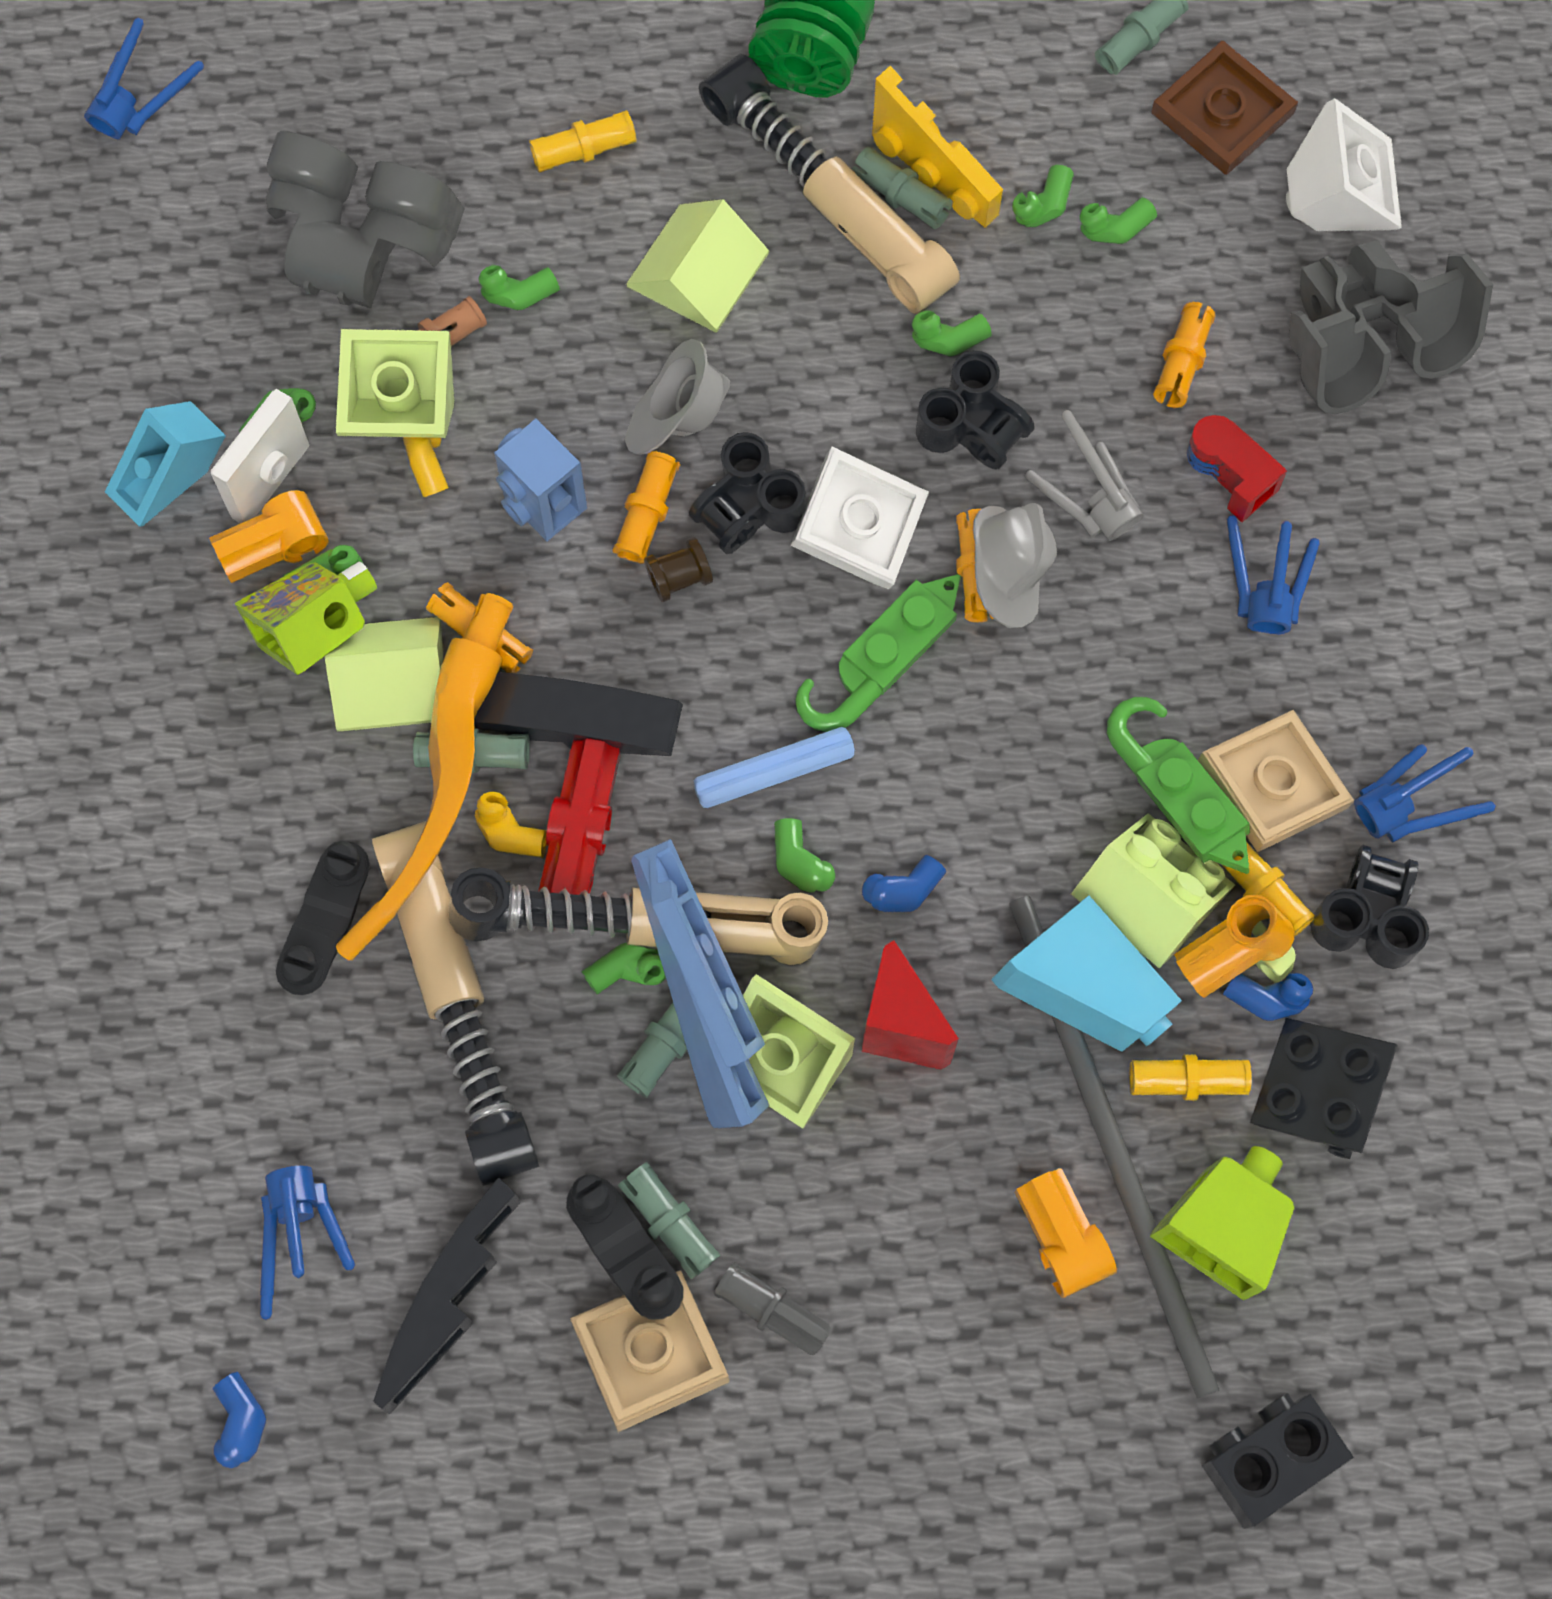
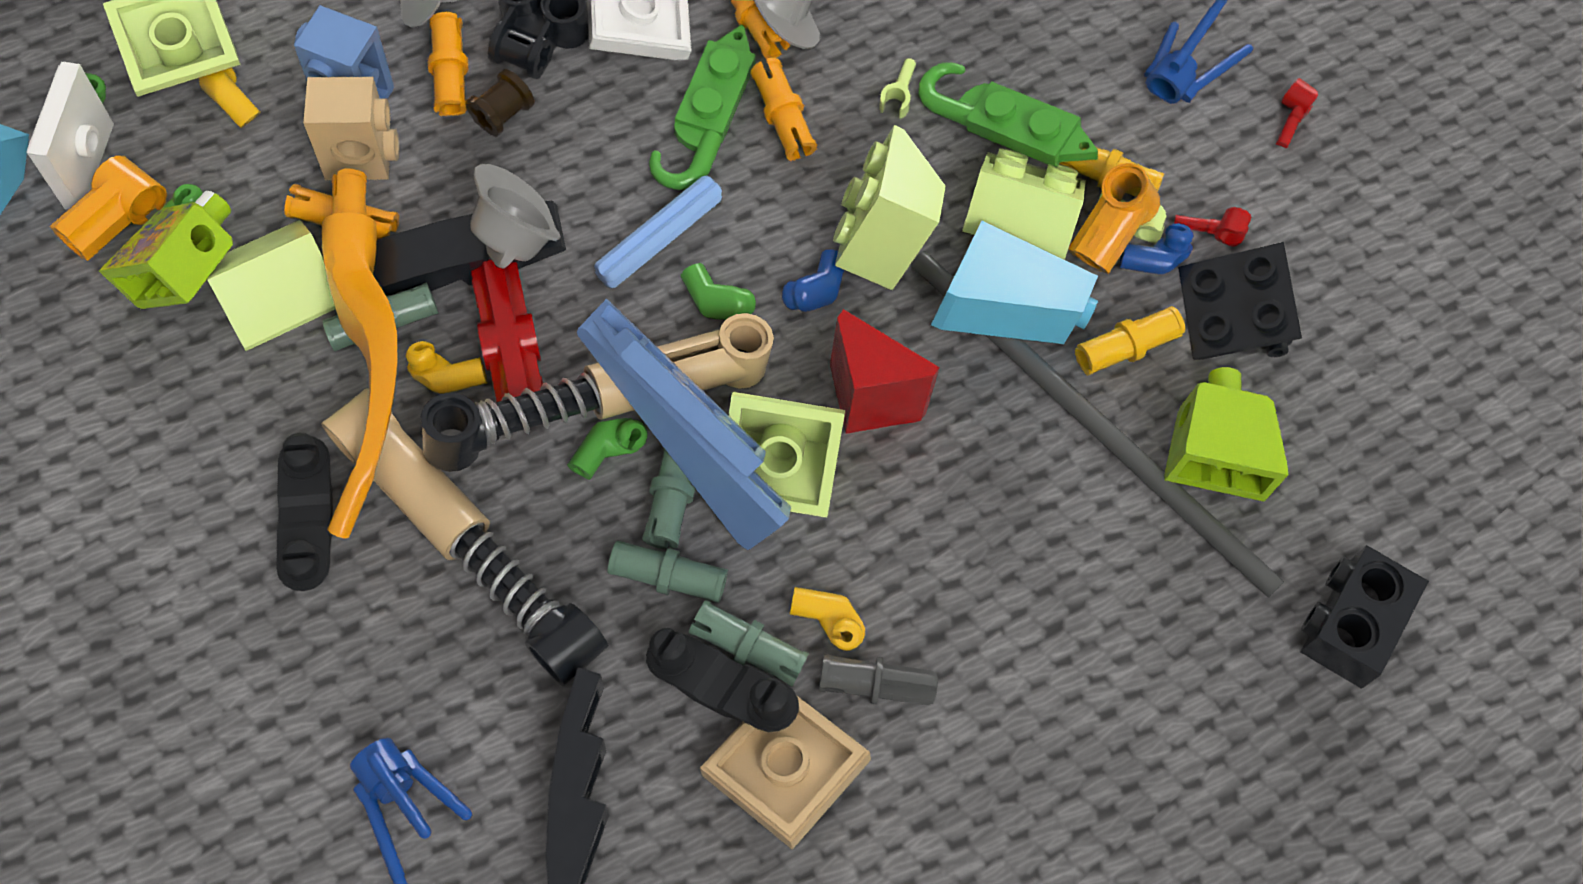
camera: 30 degrees left, 5 degrees down
(518, 549) = (349, 126): none -> tan brick
(626, 1118) = (667, 571): none -> sand green pin
(627, 706) = (509, 216): none -> light grey piece
(763, 1228) = (834, 614): none -> yellow arm
(957, 685) = (783, 109): none -> light orange pin
(1001, 848) = (888, 211): none -> yellowish green slope
(1068, 1241) = (1104, 515): light orange piece -> none
(1090, 707) = (899, 89): none -> yellowish green hand
(1277, 779) = (1080, 82): tan plate -> none
(1359, 1002) = (1229, 230): none -> red hand
(1374, 901) = (1209, 154): black piece -> none
(1513, 890) = (1300, 100): none -> red hand

